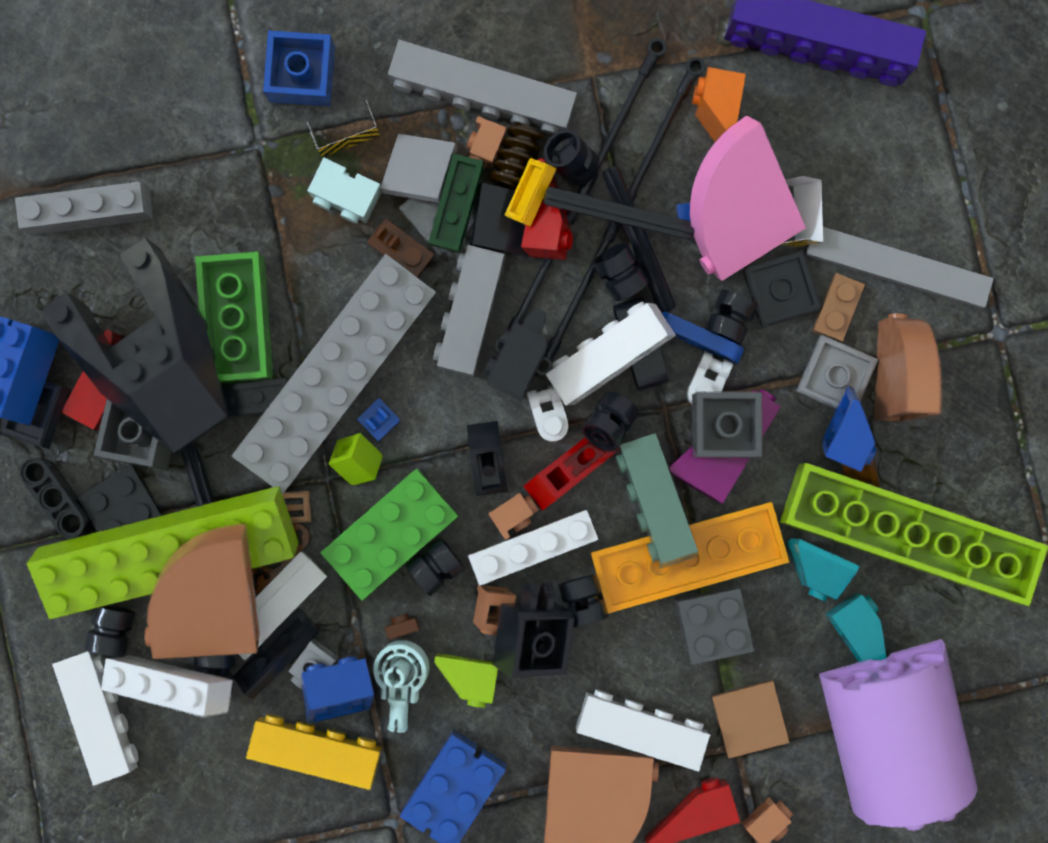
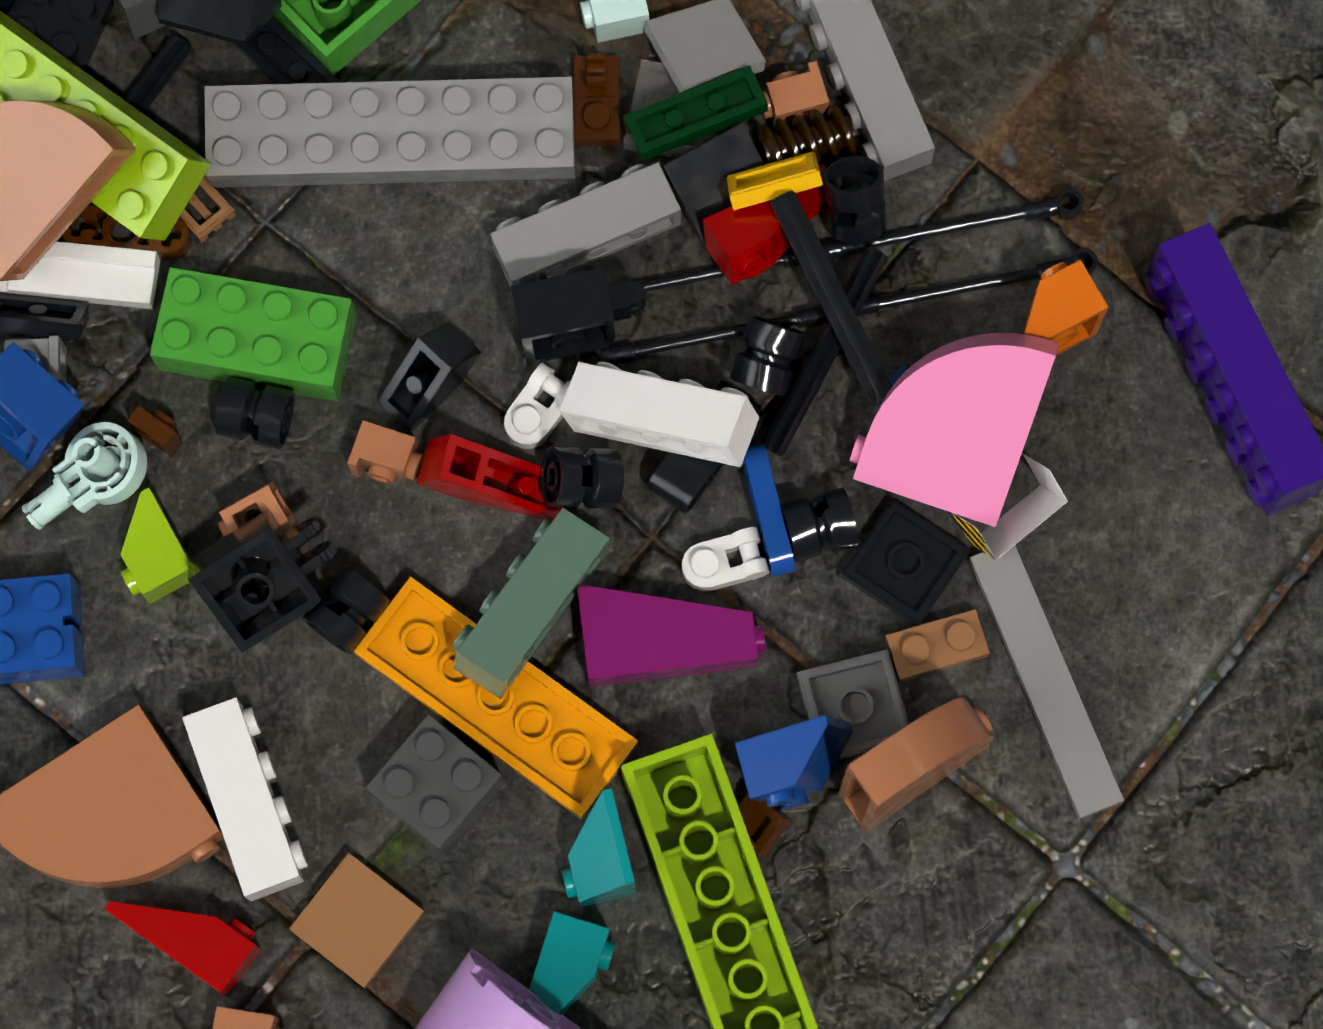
camera: 55 degrees right, 10 degrees down
(356, 459) = (311, 232): lime panel -> none
(379, 419) = (378, 225): blue tile -> none
(533, 547) = (364, 505): white brick -> none
(727, 425) = (679, 601): dark grey brick -> none

